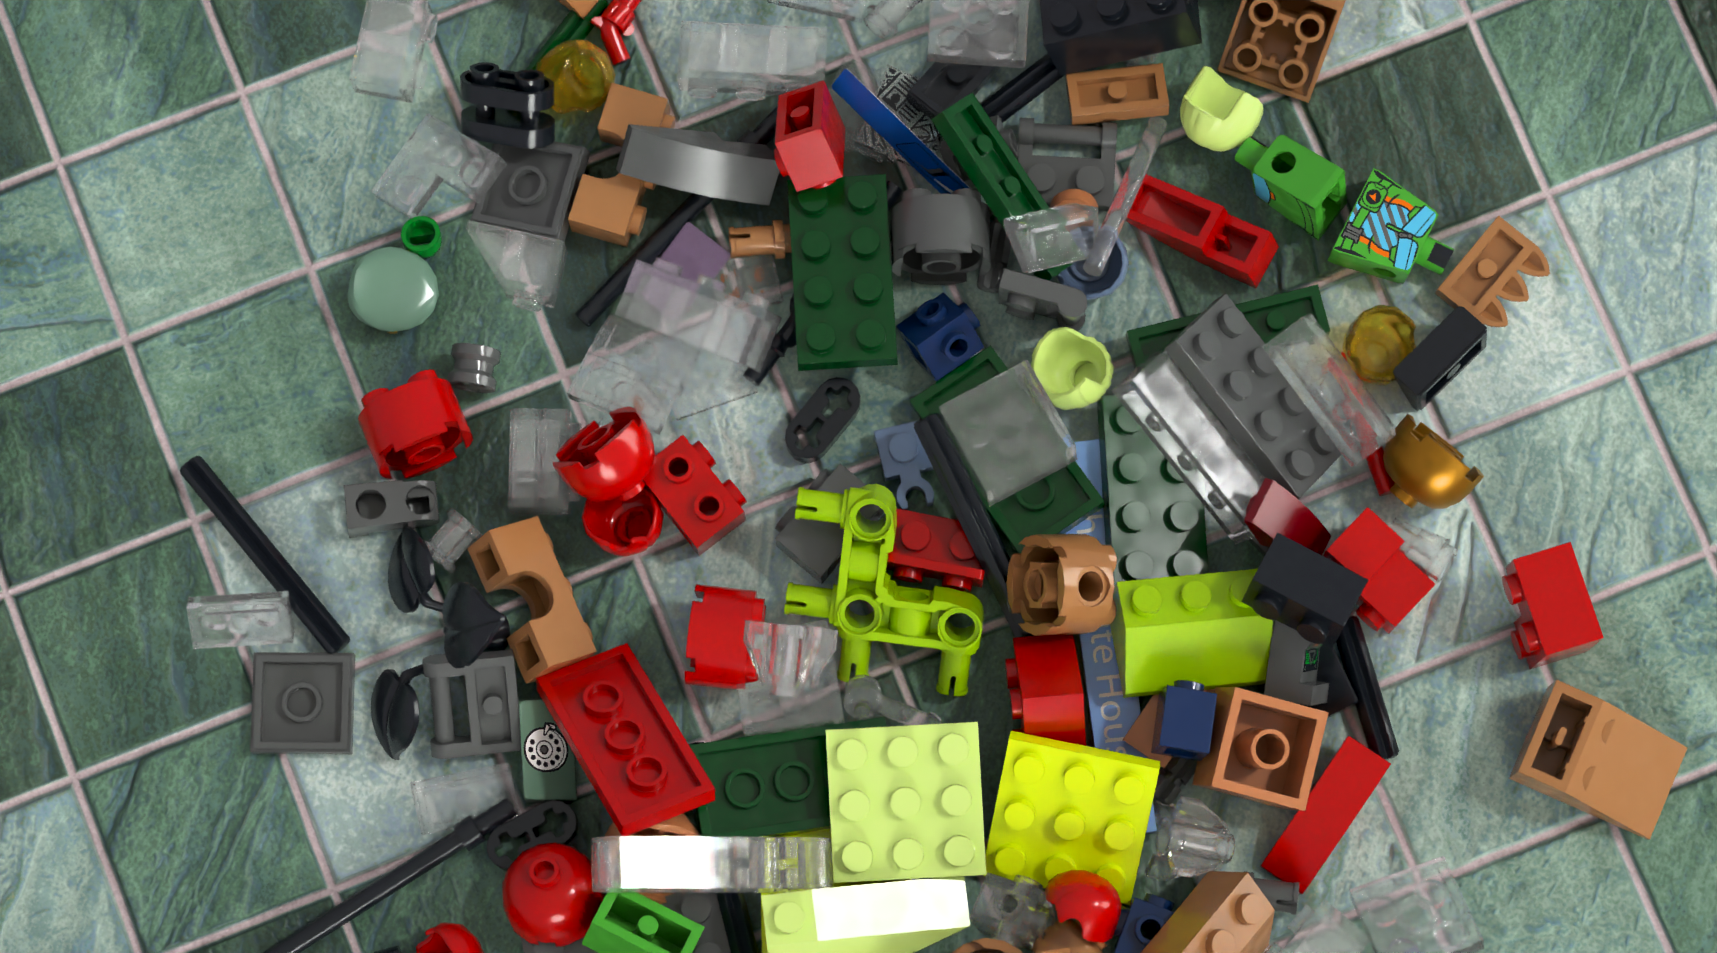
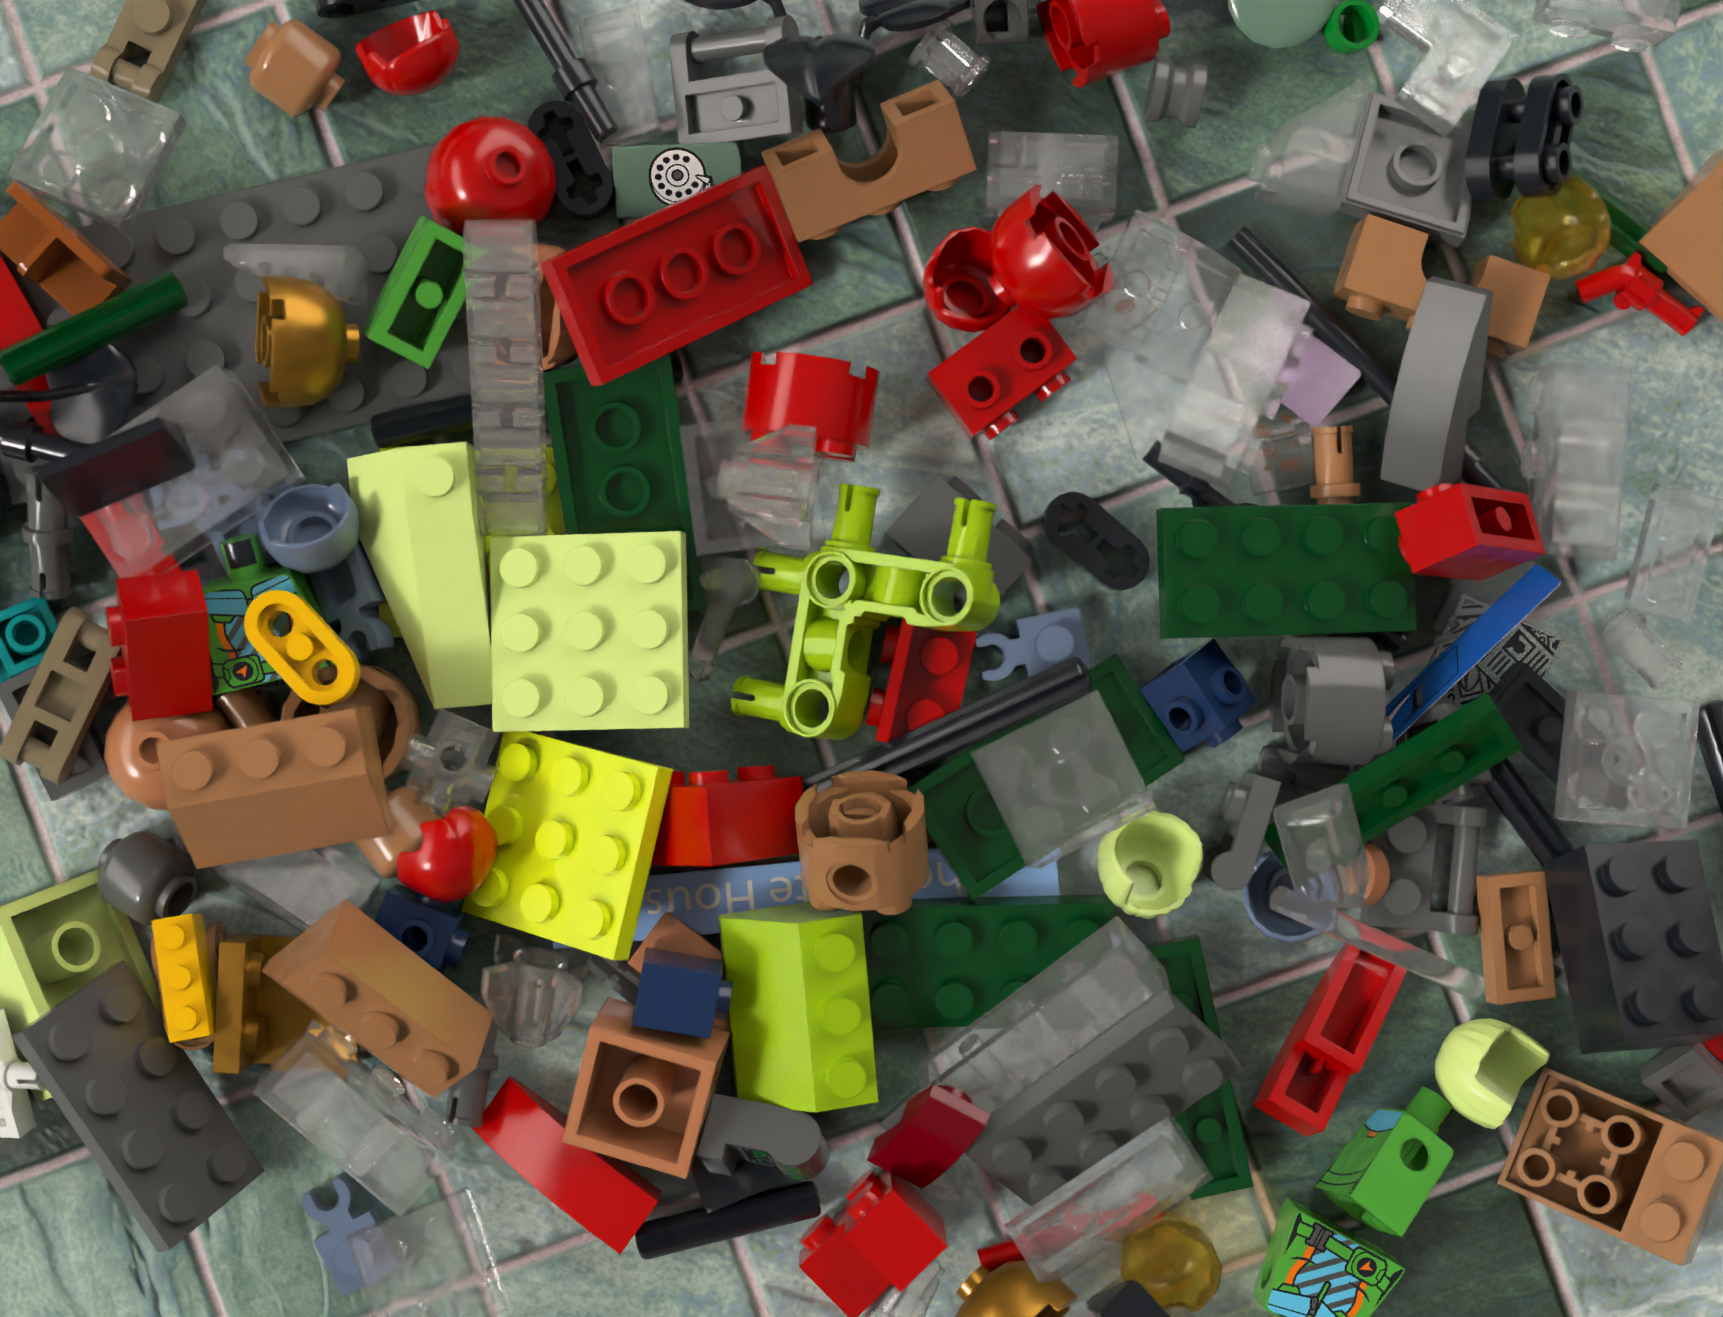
camera: 90 degrees right, 10 degrees up
(1304, 591) = (838, 1158): black brick -> none

